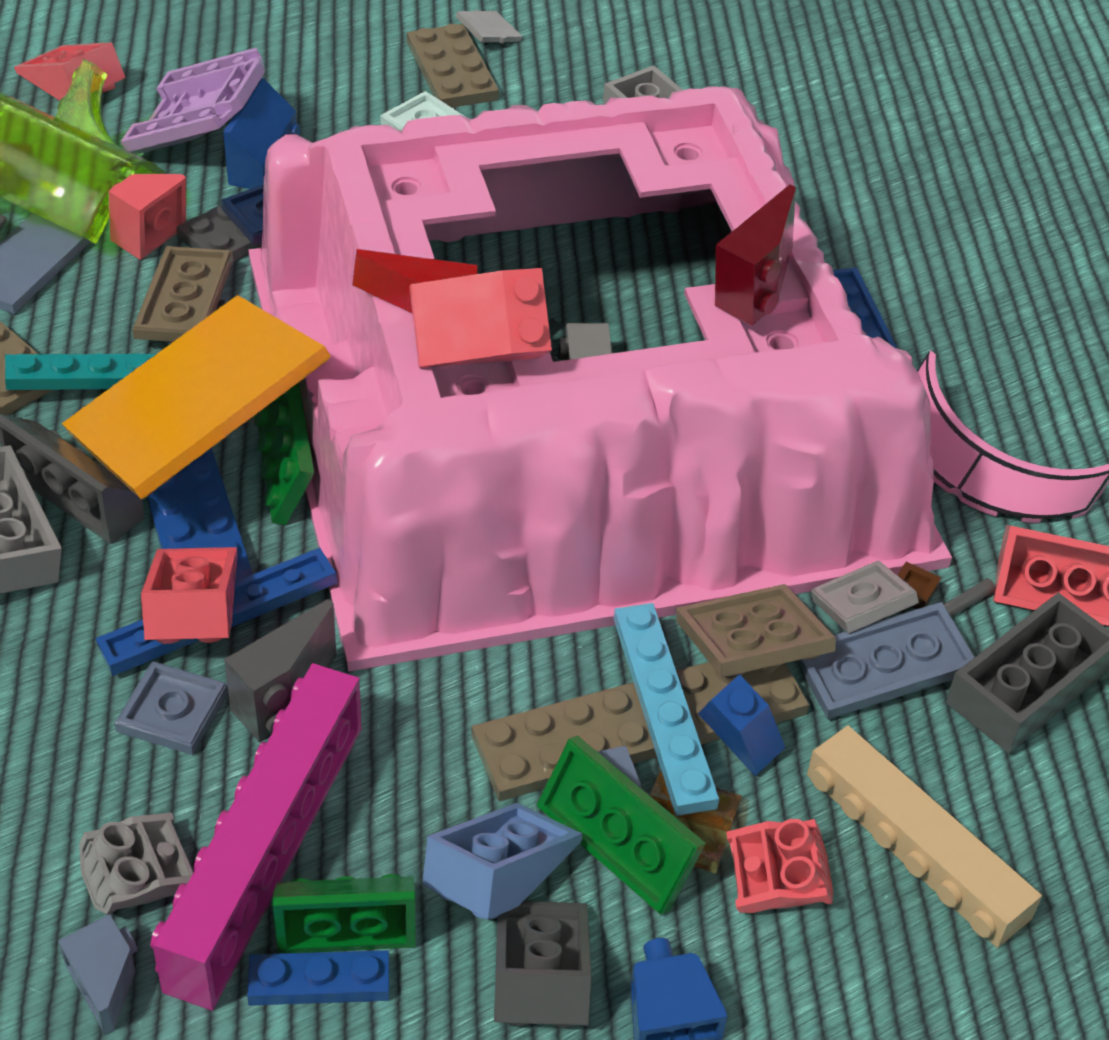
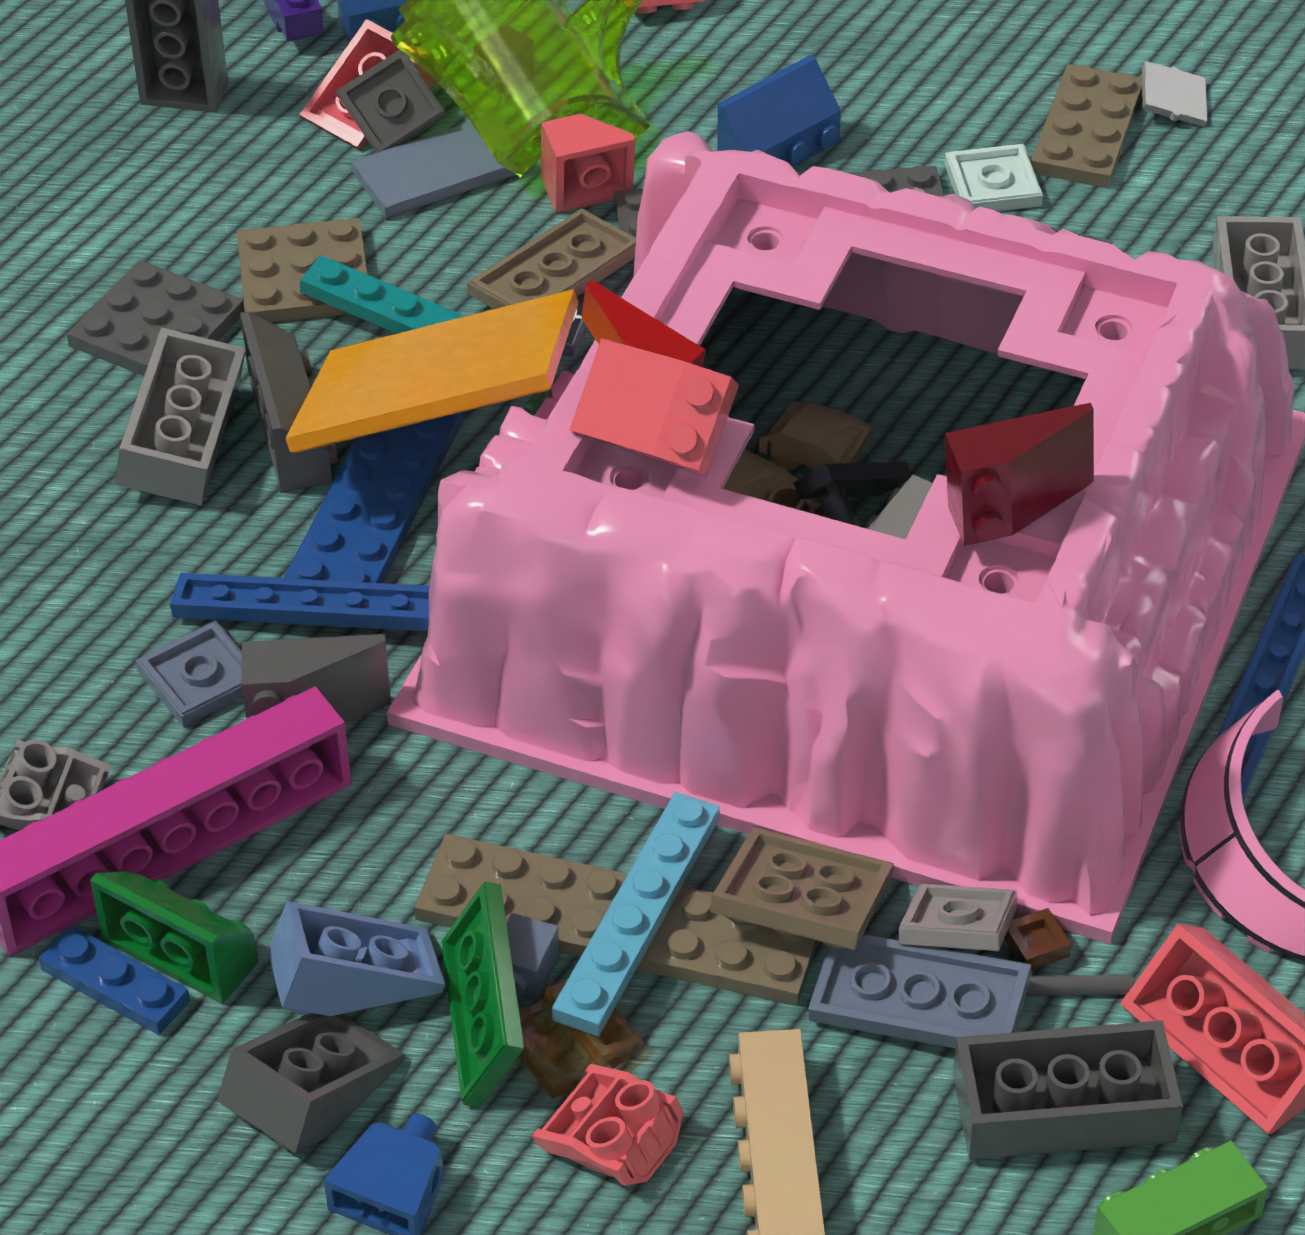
camera: 40 degrees right, 0 degrees up
(189, 594) = (282, 569): coral slope -> none
(197, 101) = (751, 51): lavender wedge -> none
(744, 724) = (697, 972): blue slope -> none

